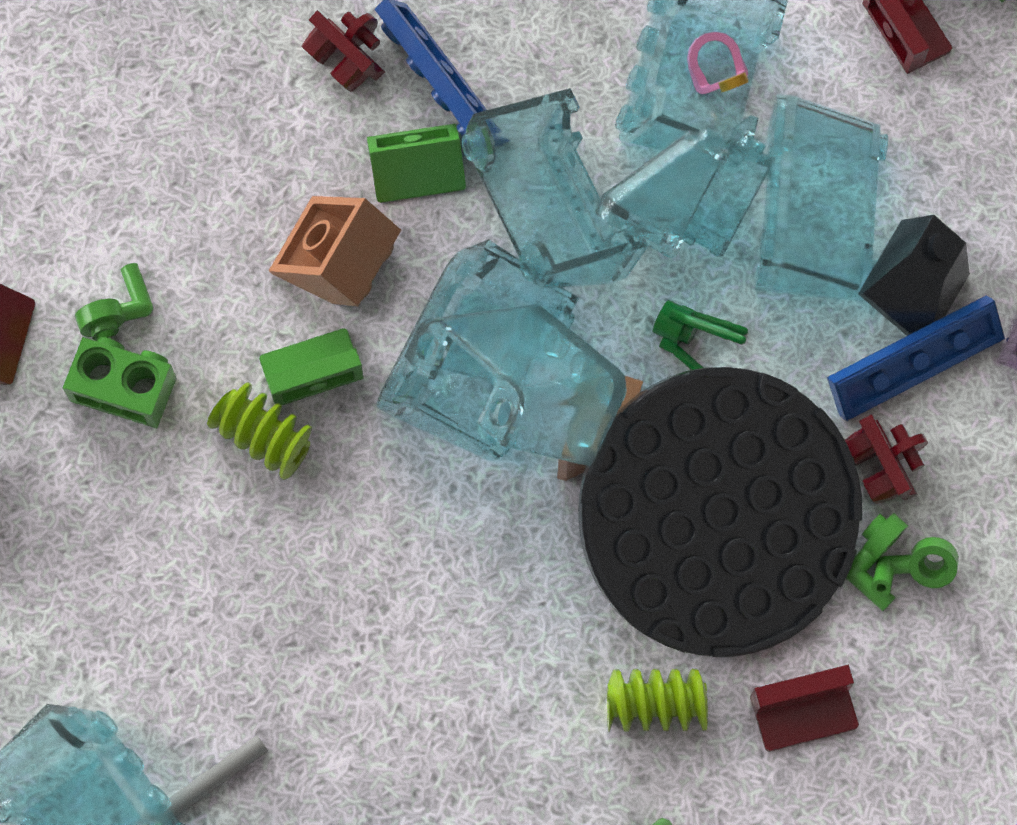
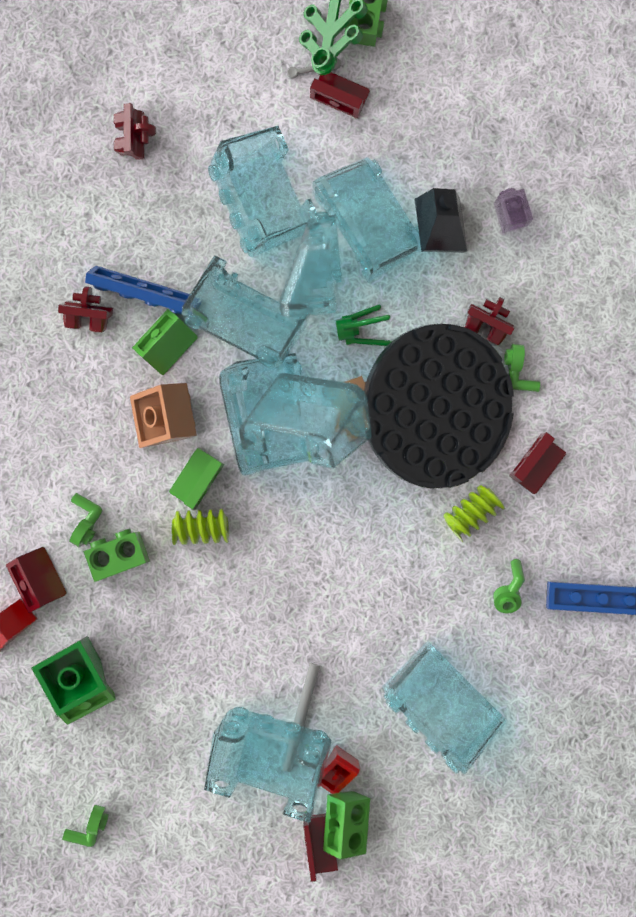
camera: 40 degrees left, 15 degrees up
(697, 76) = (284, 189): bright pink piece -> none
(916, 358) = (468, 260): blue tile -> none
(918, 565) = (544, 354): bright green plate -> none

